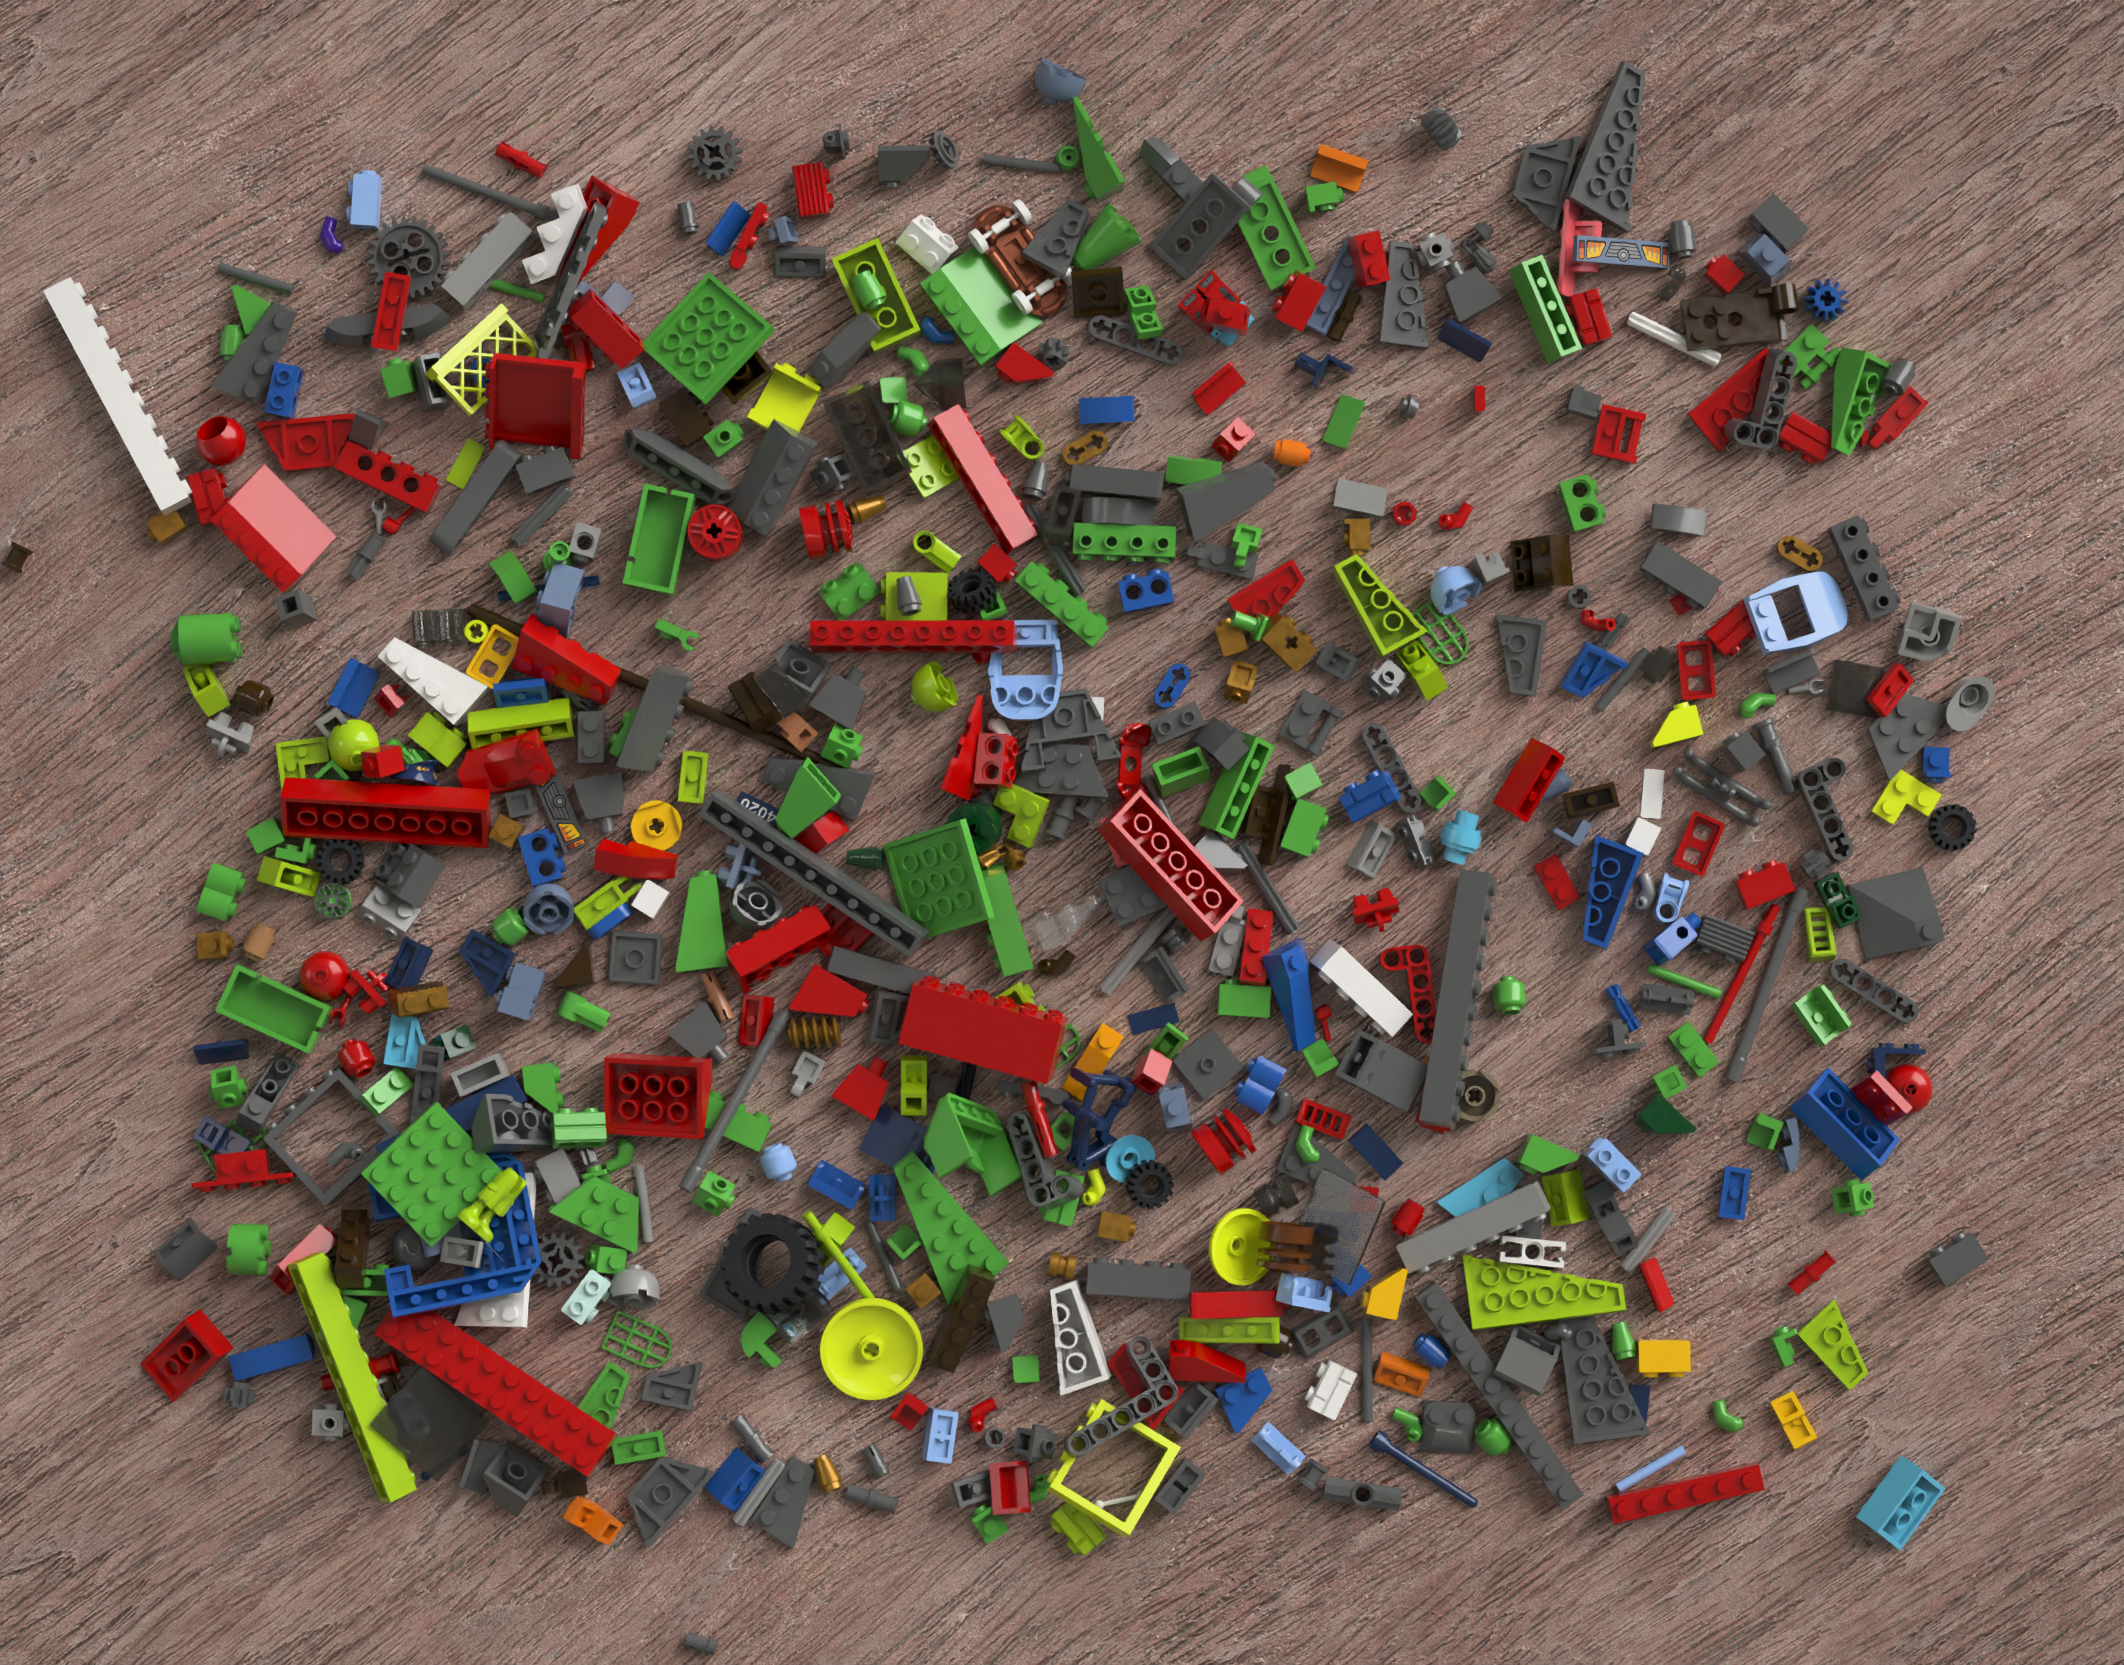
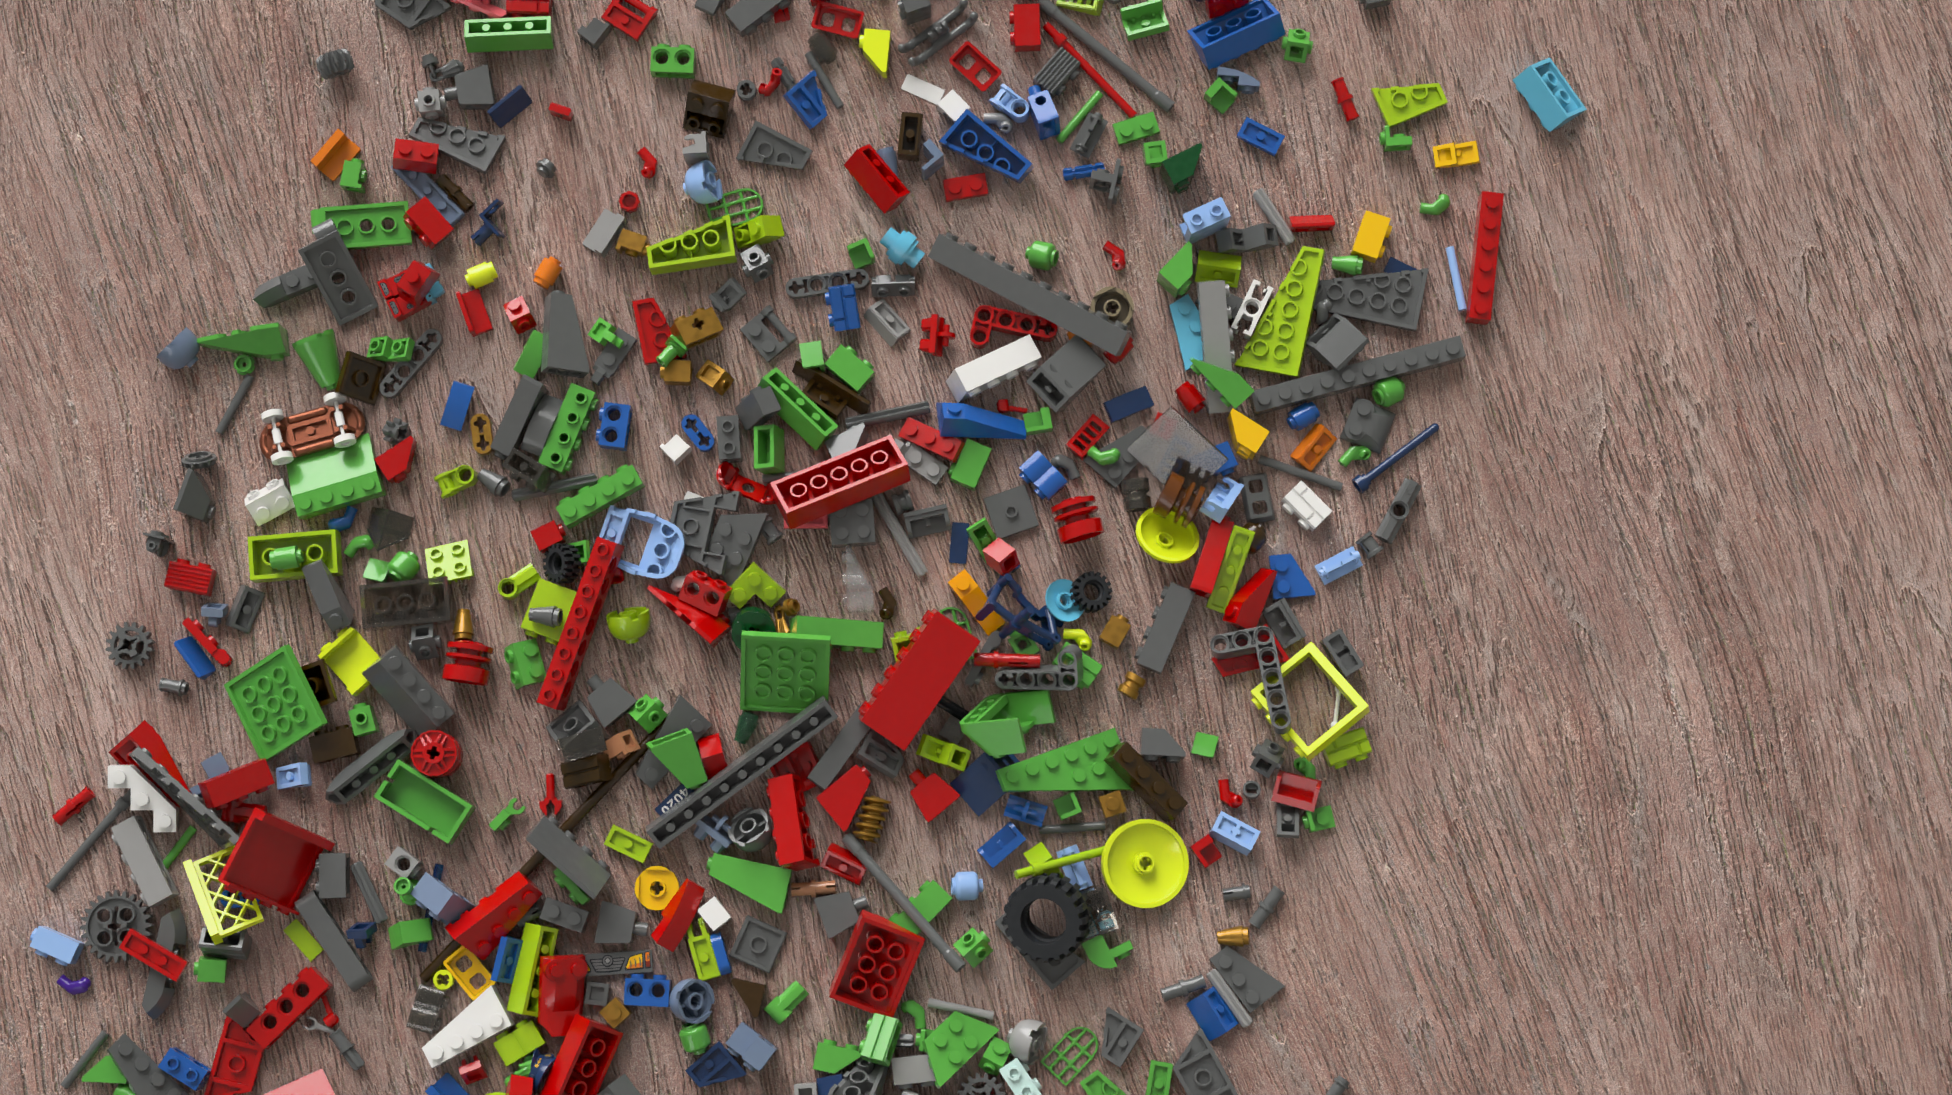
camera: 65 degrees left, 5 degrees down
(494, 525) = (362, 933): none -> dark blue tile
(715, 672) = (550, 796): none -> red bar
(808, 1070) = (900, 836): light grey plate -> none
(983, 479) = (475, 523): brick -> none
(1058, 239) = (306, 394): dark grey wing -> none
(1062, 818) = (771, 557): dark grey pin -> none
(1076, 1340) = (1199, 695): white wedge -> none
(1145, 668) = (676, 449): none -> white panel
(1174, 1107) = (1037, 550): sand blue torso -> none
(1262, 380) = (481, 275): none -> neon yellow brick
(1343, 422) = (539, 223): bright green slope -> none
(1435, 1253) = (1228, 383): none -> bright green slope
(1540, 1080) = (1117, 255): none -> red arm

